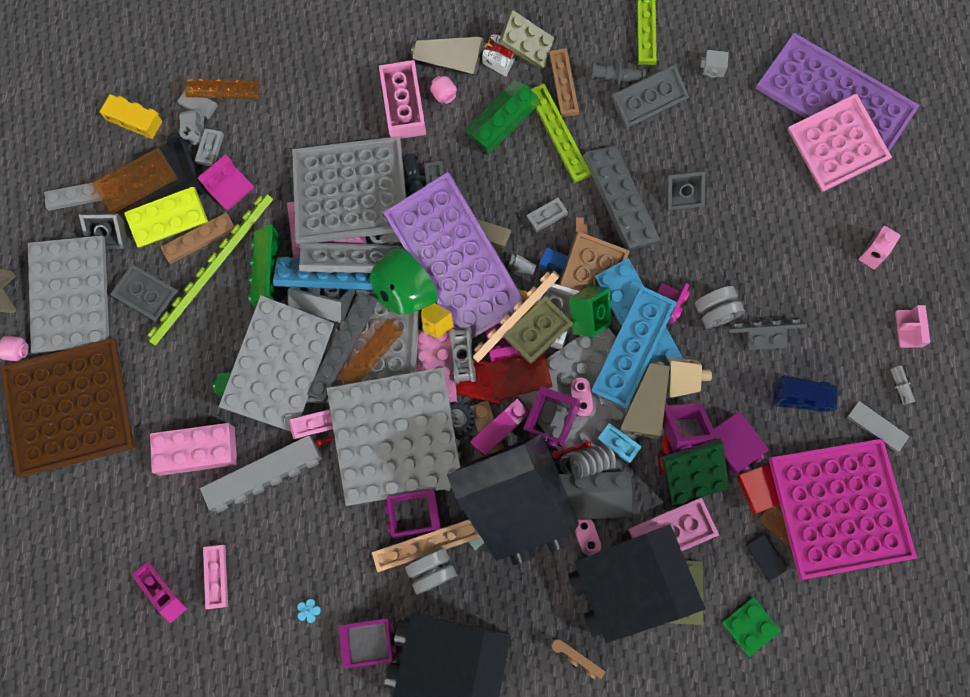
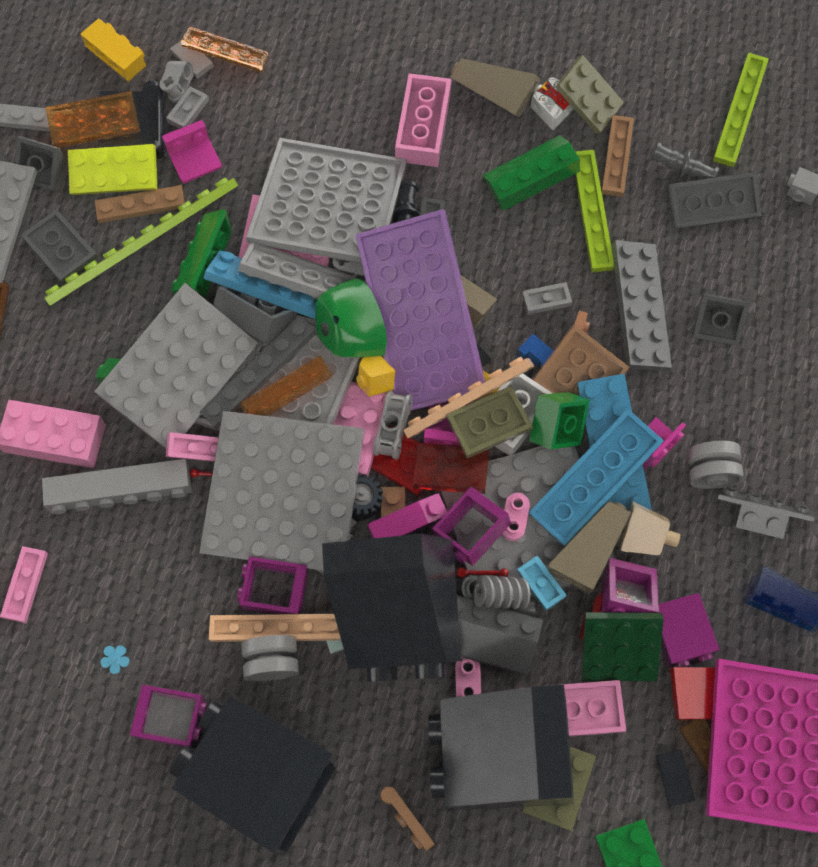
camera: 15 degrees right, 5 degrees down
(443, 89) = (474, 122): bright pink head -> none
(521, 265) = (496, 345): light grey cone -> none

